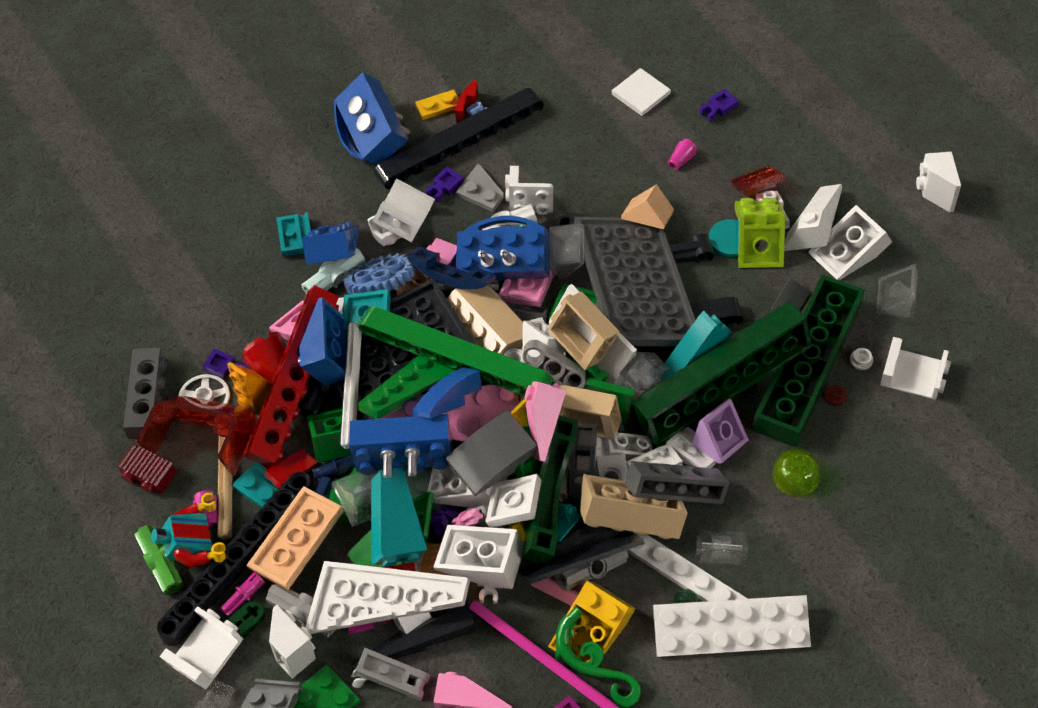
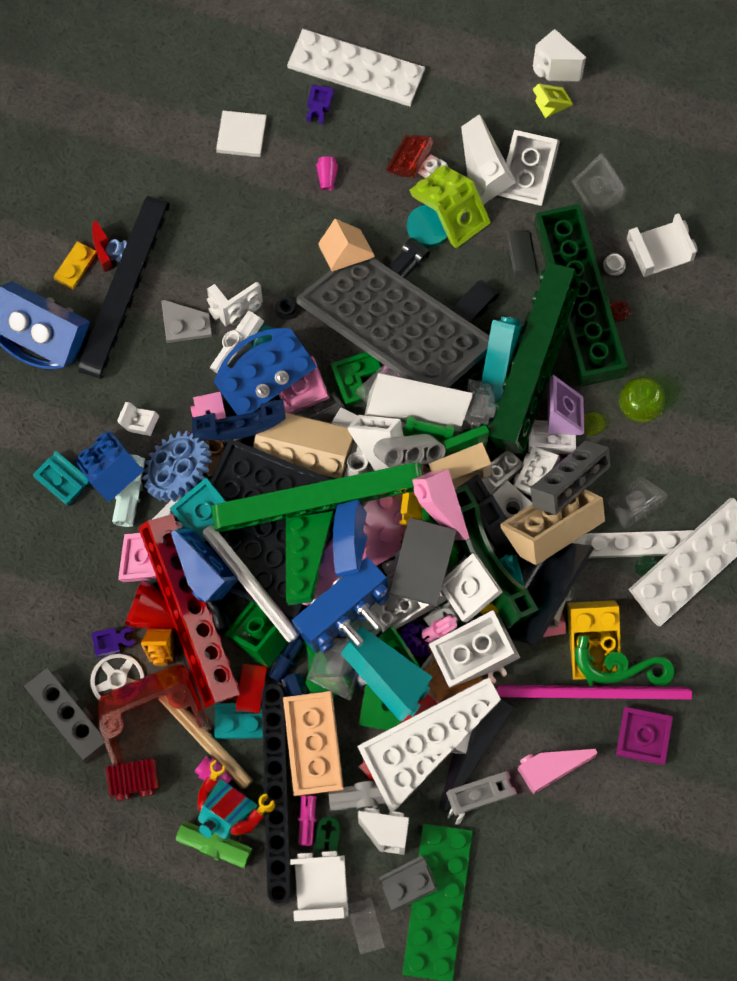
camera: 40 degrees left, 15 degrees up
(403, 210) = (143, 392): white panel -> none
(444, 182) = (150, 337): dark purple plate -> none
(566, 249) = (315, 331): clear slope -> none
(572, 341) = (411, 419): tan window -> none
(738, 464) = (593, 424): none -> clear neon green tile
(772, 99) = (356, 67): none -> white plate
(912, 208) = (551, 99): none -> neon yellow slope

